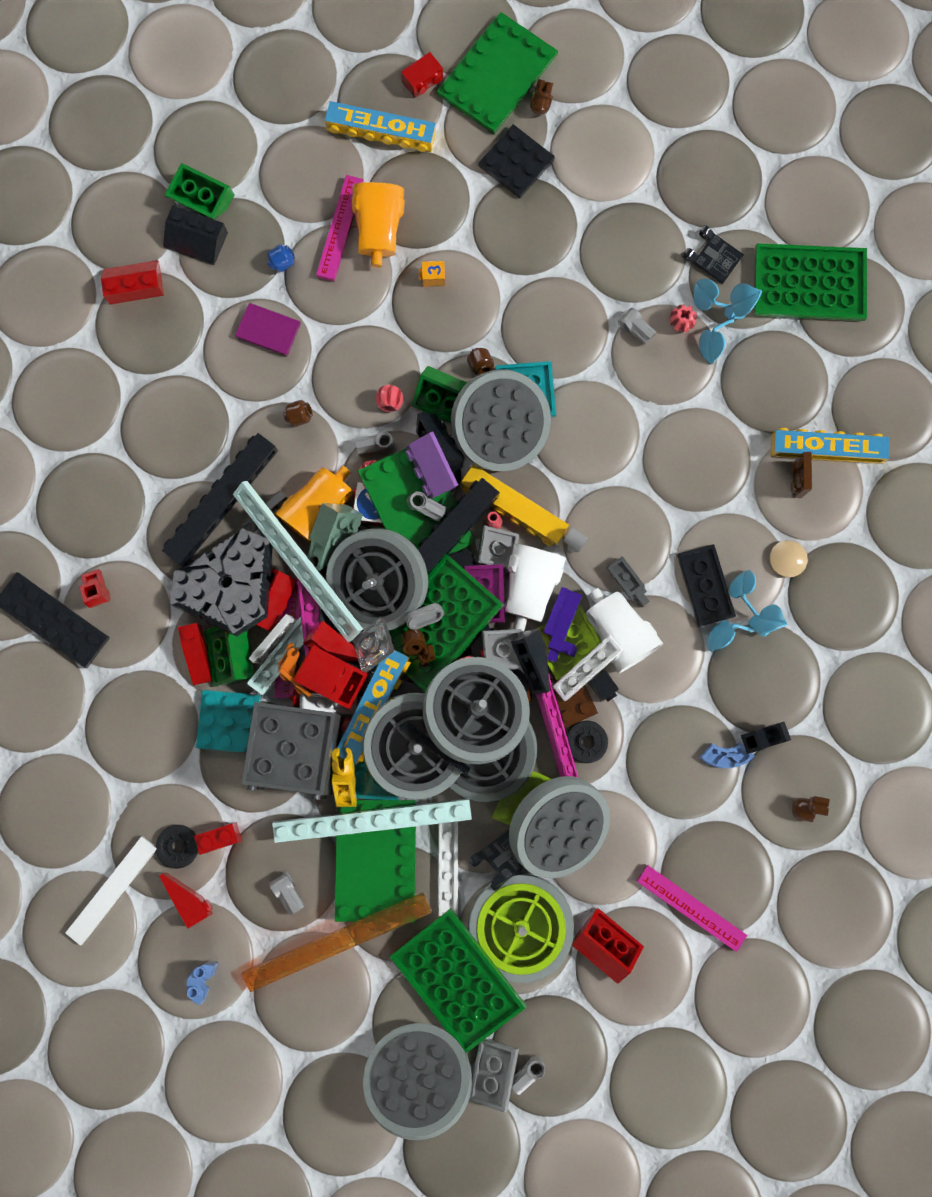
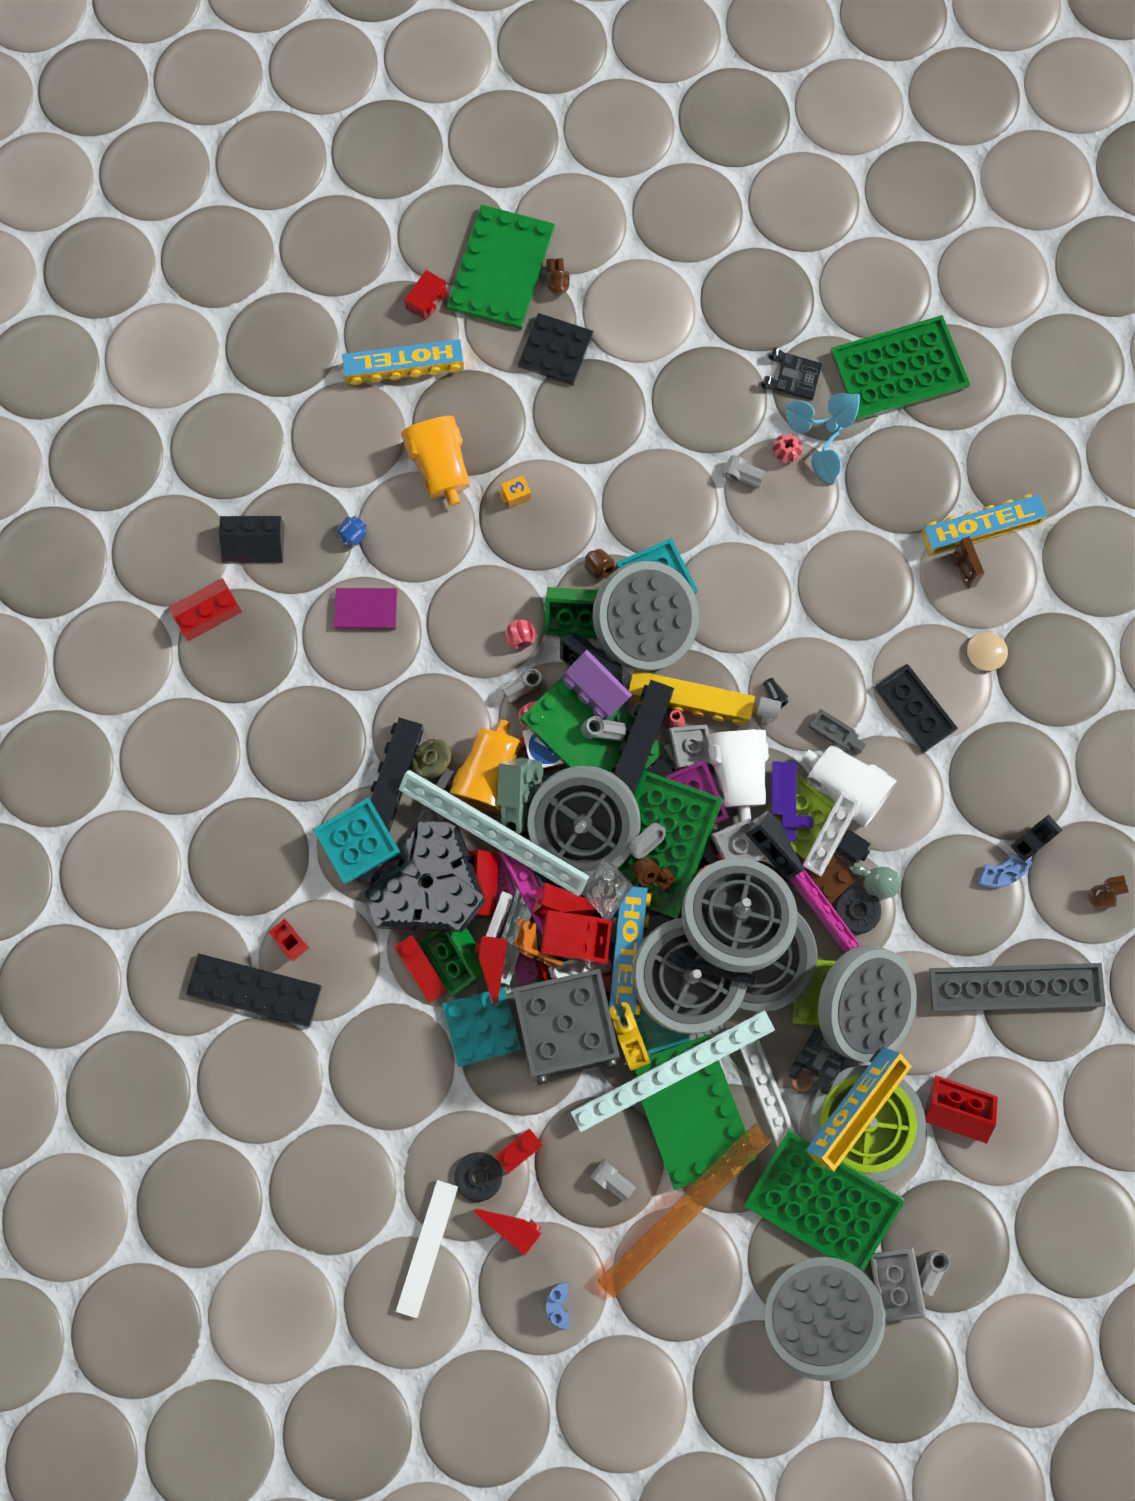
camera: 20 degrees left, 5 degrees down
(180, 525) = (356, 841): none -> teal plate
(199, 192) = (242, 493): green slope -> none
(252, 673) = (491, 959): none -> red slope
(273, 478) = (431, 758): none -> olive tile
(298, 413) = (431, 683): reddish brown head -> none
(338, 232) = (400, 481): dark pink tile -> none
(481, 872) = (803, 1083): none -> nougat tile
(515, 915) = (858, 1108): none -> brick
(588, 528) = (775, 692): none -> black cone
(614, 724) = (879, 881): none -> sand green hair
(692, 908) = (1030, 1039): dark pink tile -> none
(698, 859) = (1016, 987): none -> dark grey plate
(769, 620) = (994, 716): medium azure plant -> none

